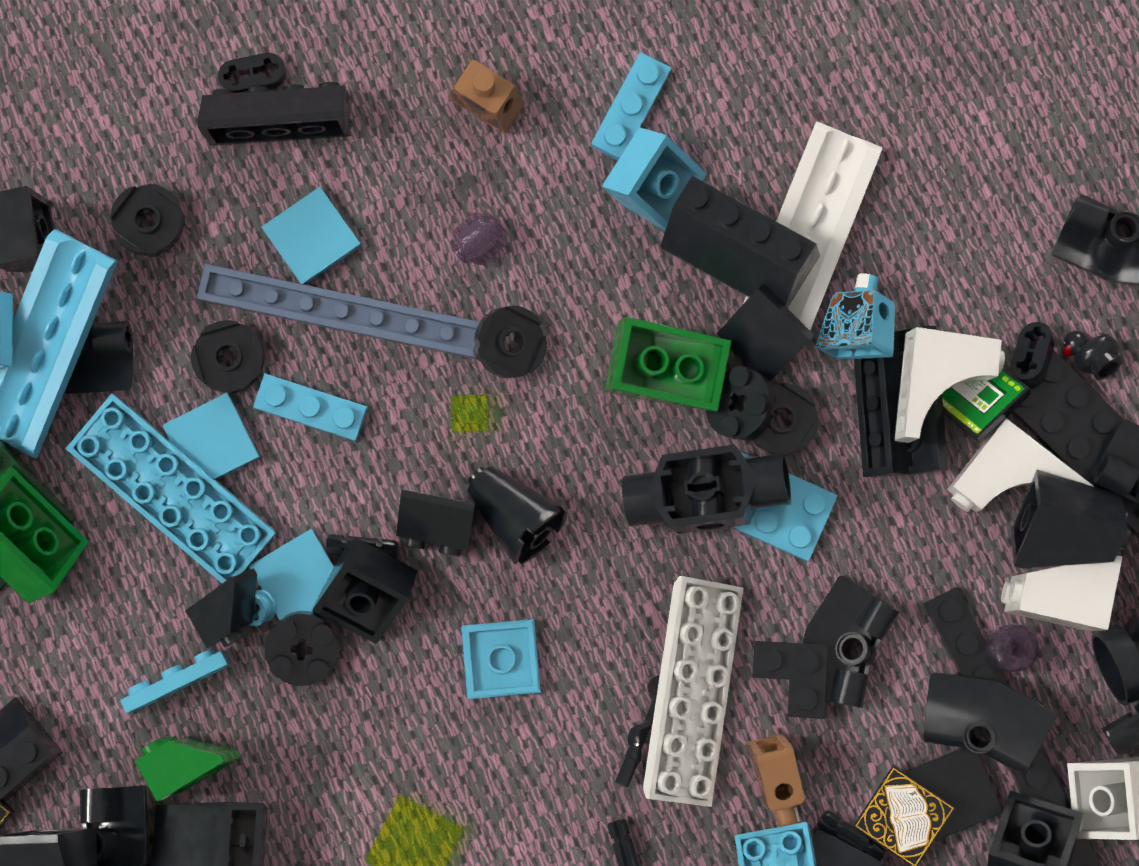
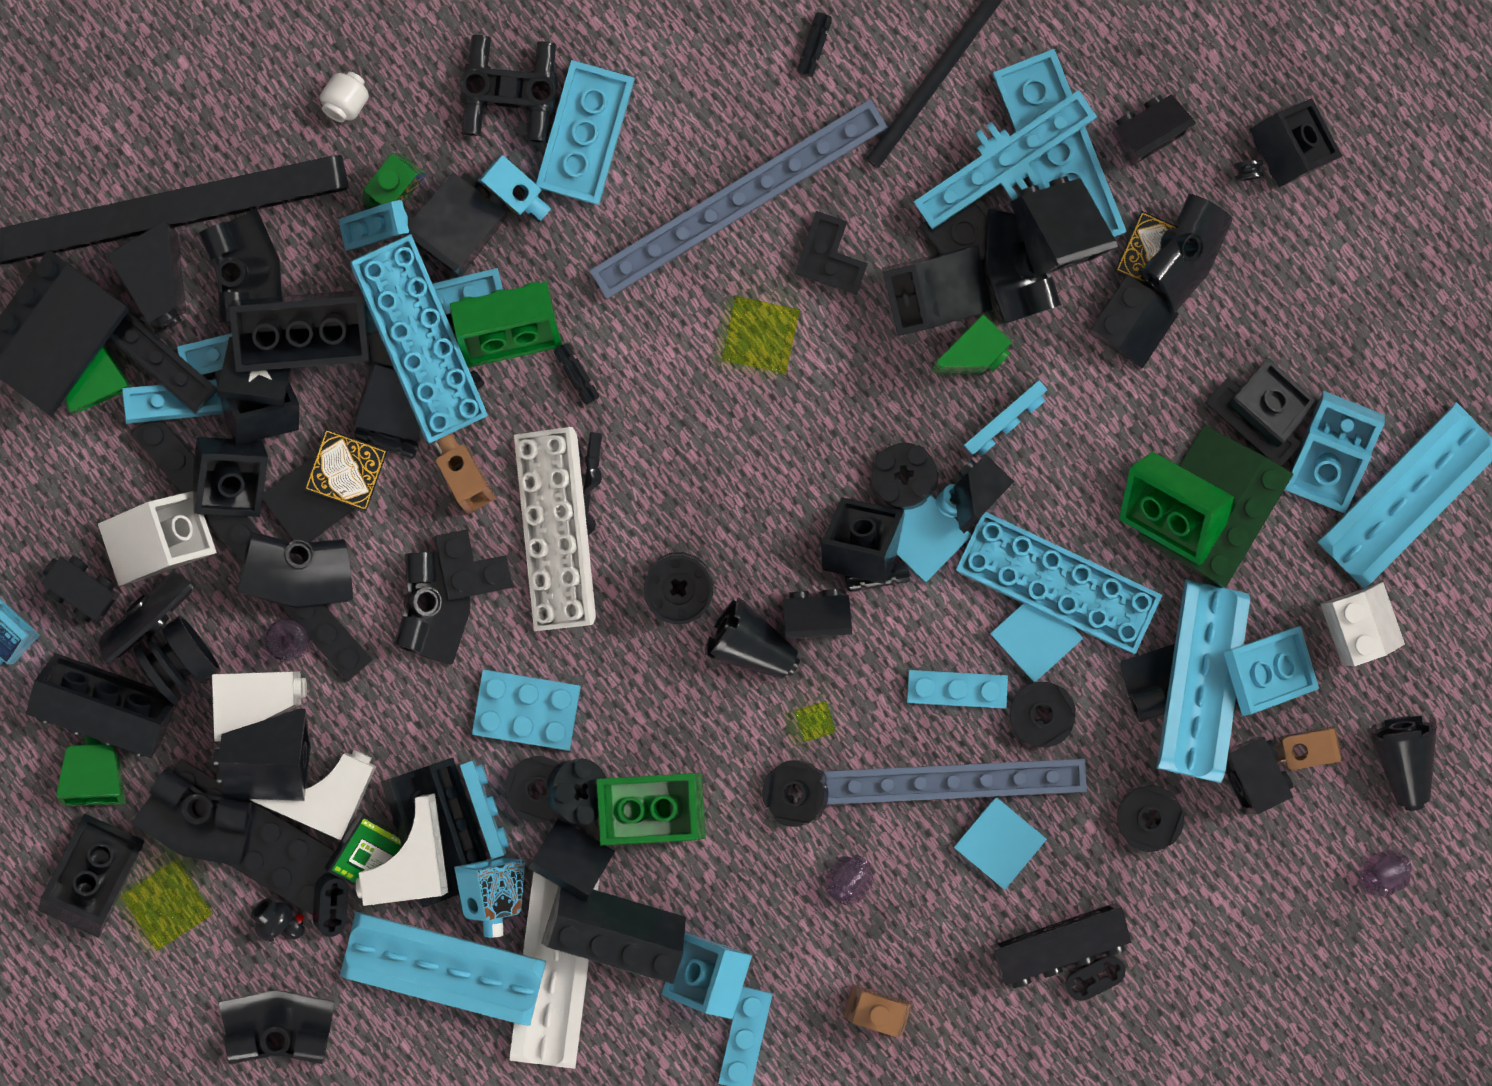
camera: 165 degrees right, 5 degrees up
(500, 659) = (729, 513): medium azure tile -> none
(585, 572) = (677, 607): none -> black wheel
(706, 489) = (588, 706): black brick -> none
(843, 412) = (485, 808): none -> medium azure plate
(929, 257) = (443, 968): none -> medium azure plate

